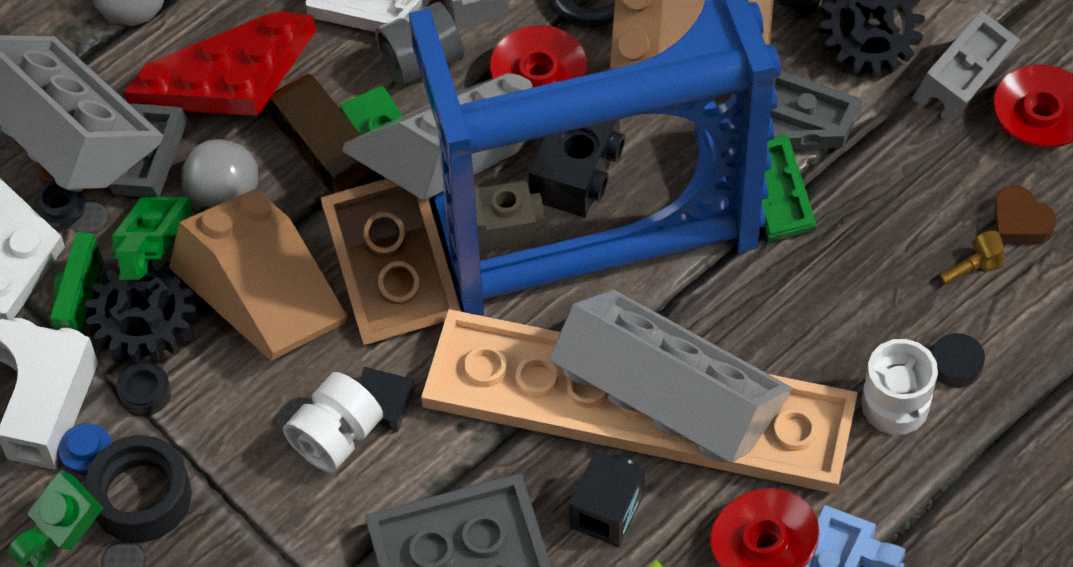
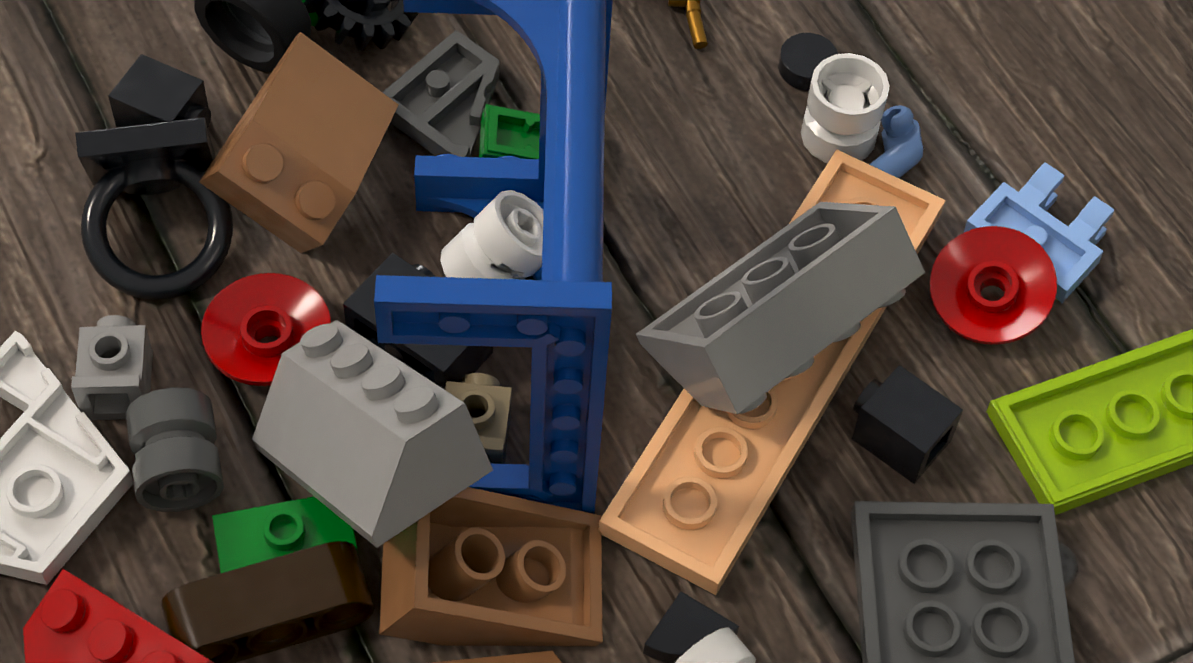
camera: 80 degrees left, 0 degrees up
(649, 177) = (500, 242): none -> white wheel
(893, 450) = (900, 140): none -> medium blue arm

